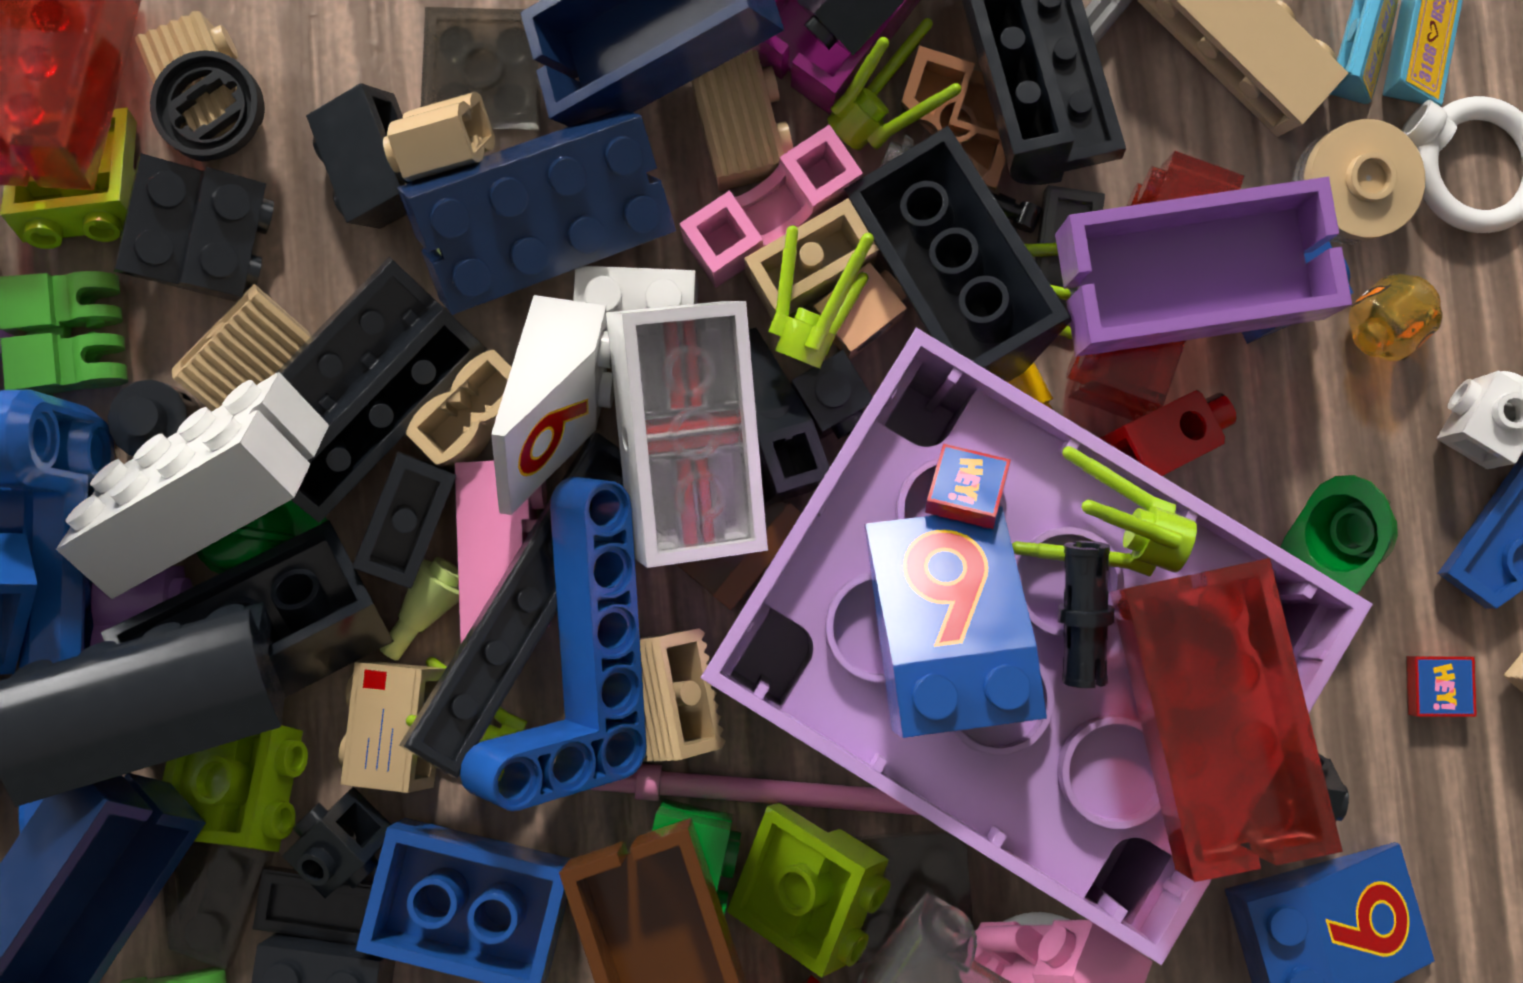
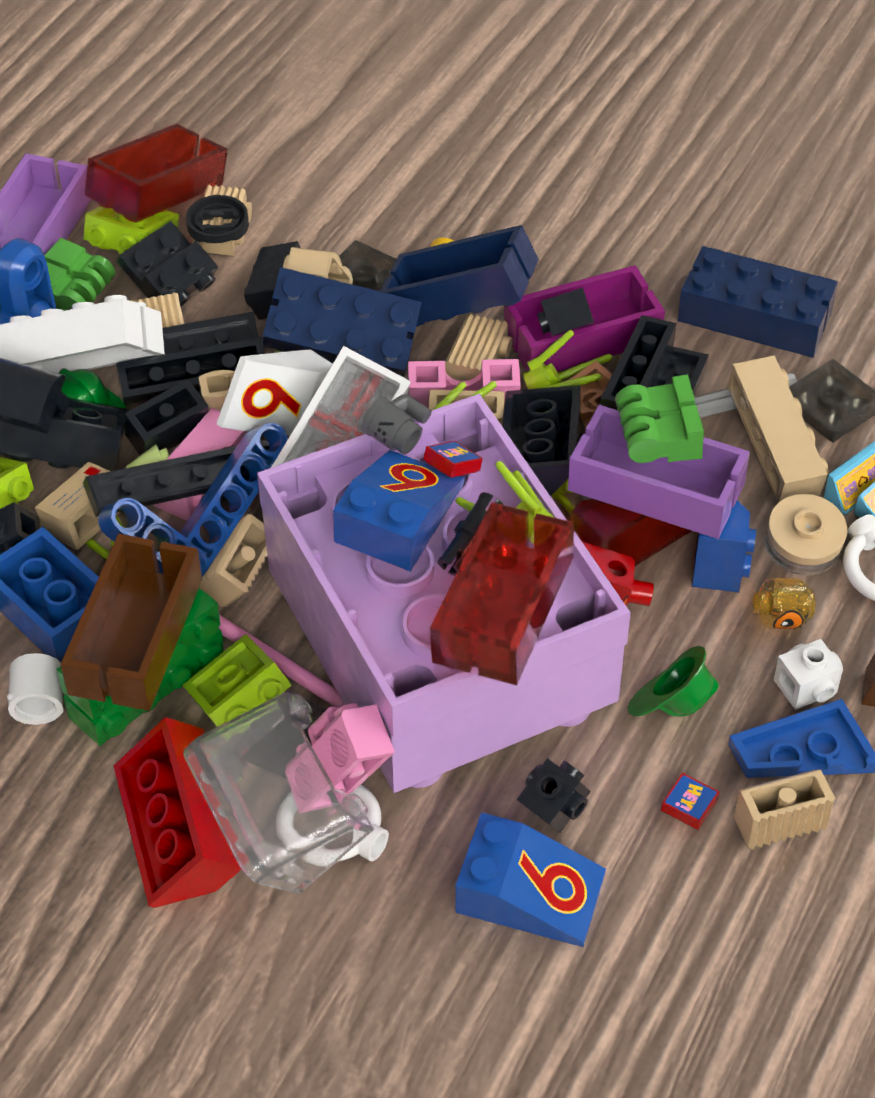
camera: 30 degrees right, 35 degrees down
(850, 488) = (394, 422): none -> dark grey piece
(1193, 179) = (661, 421): none -> bright green legs

